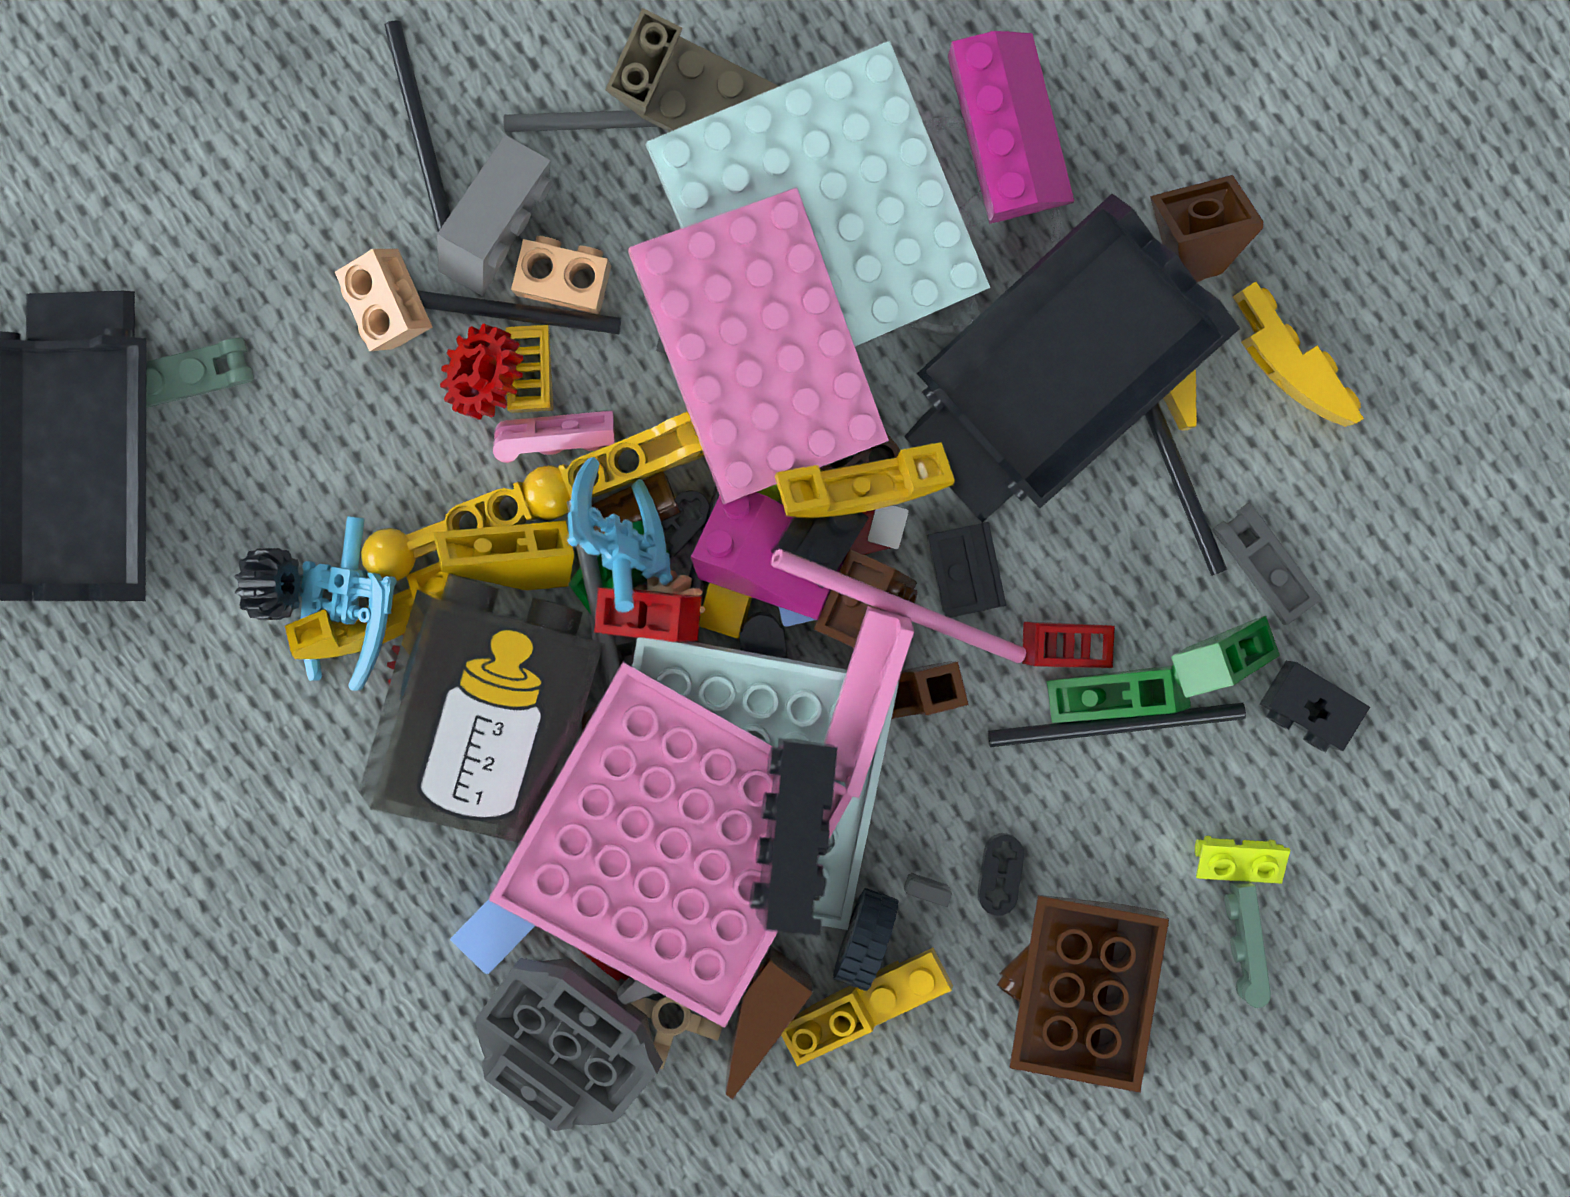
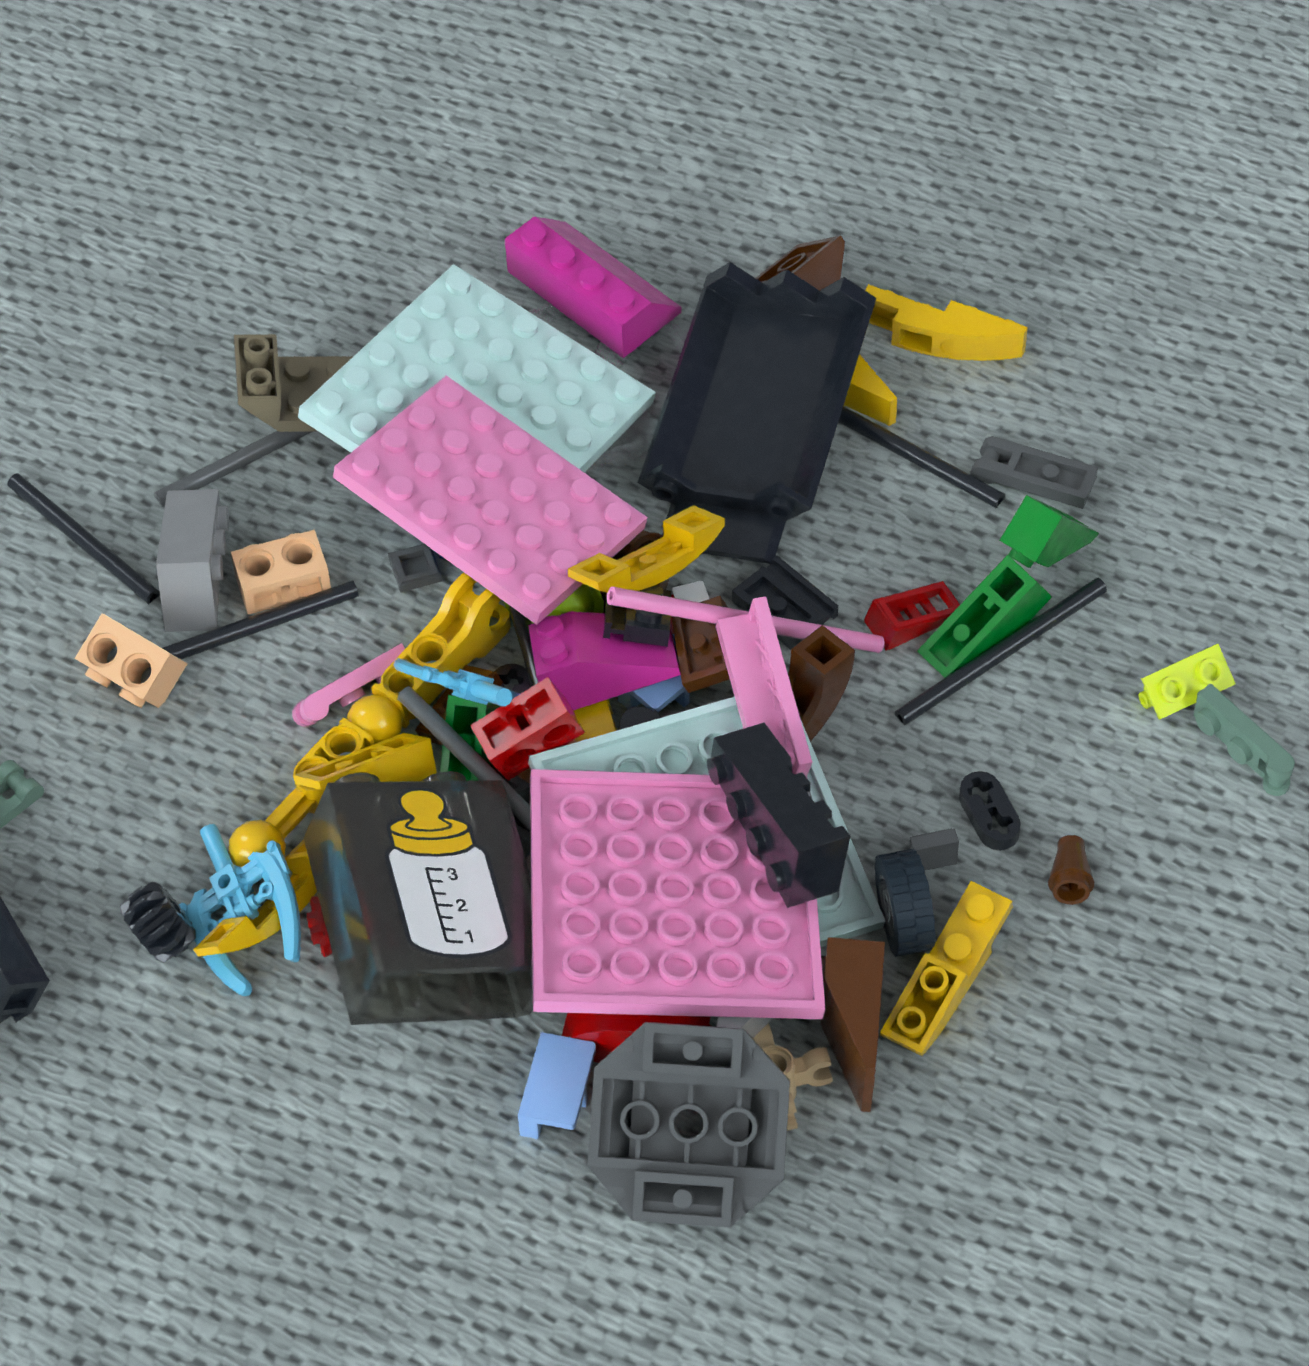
camera: 30 degrees left, 35 degrees down
(481, 371) = (254, 666): red gear -> none
(532, 403) = (307, 680): yellow slope -> none
(1089, 991) = (1138, 840): reddish brown slope -> none
(1338, 714) = (1154, 543): black brick -> none

